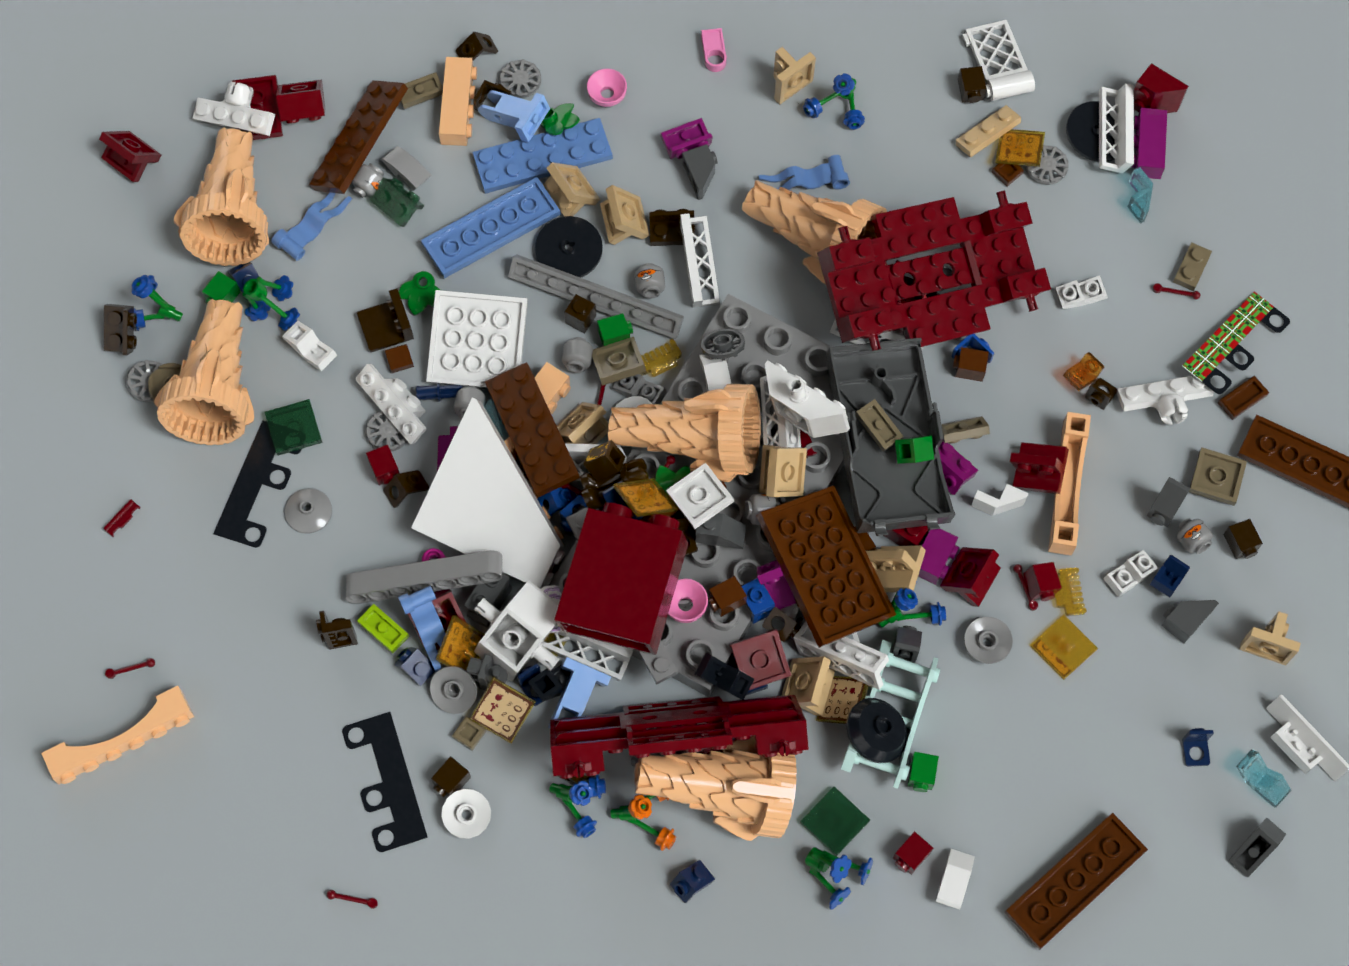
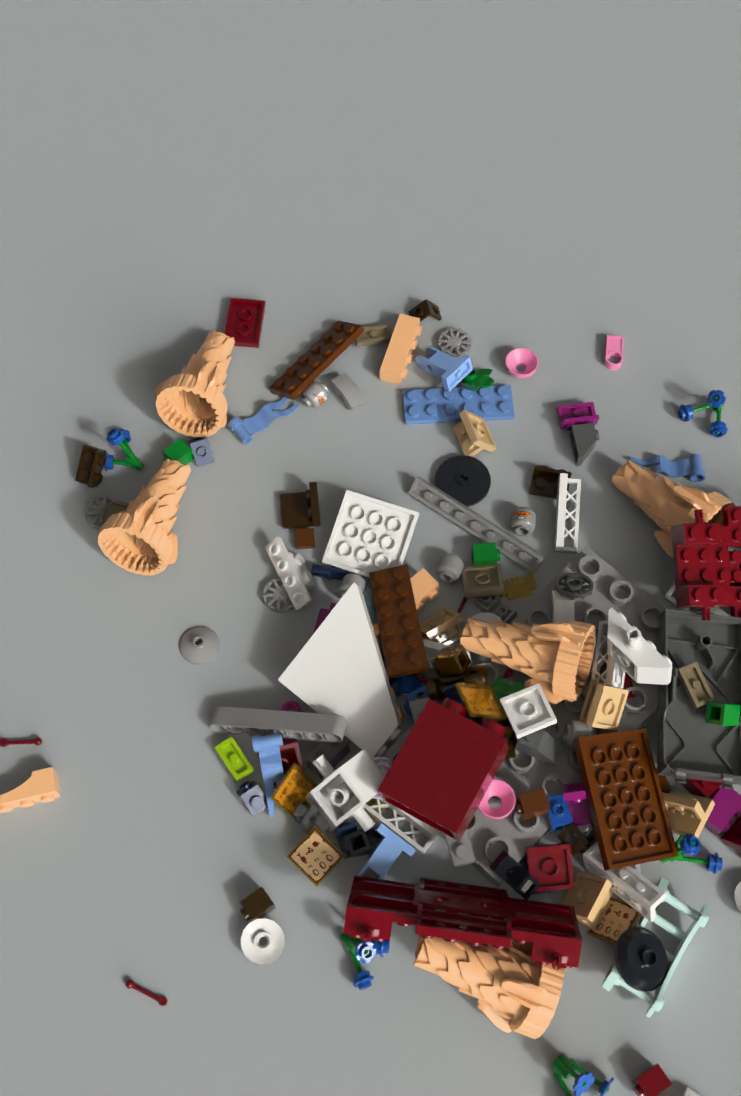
camera: 15 degrees right, 5 degrees down
(121, 518) = (50, 616): dark red piece -> none
(128, 153) = (136, 335): dark red bracket -> none
(235, 111) = (226, 320): white plate -> none
(253, 474) = (165, 604): black piece -> none
(260, 305) = (204, 459): plant -> none
(293, 427) = (205, 574): clear green tile -> none
(301, 101) = (279, 324): dark red slope -> none
(308, 345) = (235, 512): white slope -> none
(336, 633) = (195, 753): dark brown bracket -> none
(382, 464) = (269, 622): dark red brick -> none
(396, 200) = (333, 414): clear green bracket -> none
(396, 784) = (211, 896): black piece -> none
(406, 483) = (284, 642): dark brown bracket -> none
(418, 295) = (333, 492): green plate -> none
(446, 696) = (272, 831): light grey dish -> none
(469, 733) = (283, 868): dark tan tile -> none
(484, 90) = (423, 345): dark brown bracket -> none
(490, 227) = (403, 451): medium blue plate -> none
(580, 313) = (459, 535): dark brown brick -> none
(623, 215) = (512, 464): tan bracket -> none
(641, 808) = (411, 979): orange plant -> none
(691, 881) = (445, 1056): dark blue bracket -> none
(791, 74) = (674, 382): tan bracket -> none
(835, 821) = (586, 1032): clear green tile -> none
(907, 643) = (683, 884): dark grey slope -> none
(923, 771) = (675, 1007): green brick -> none

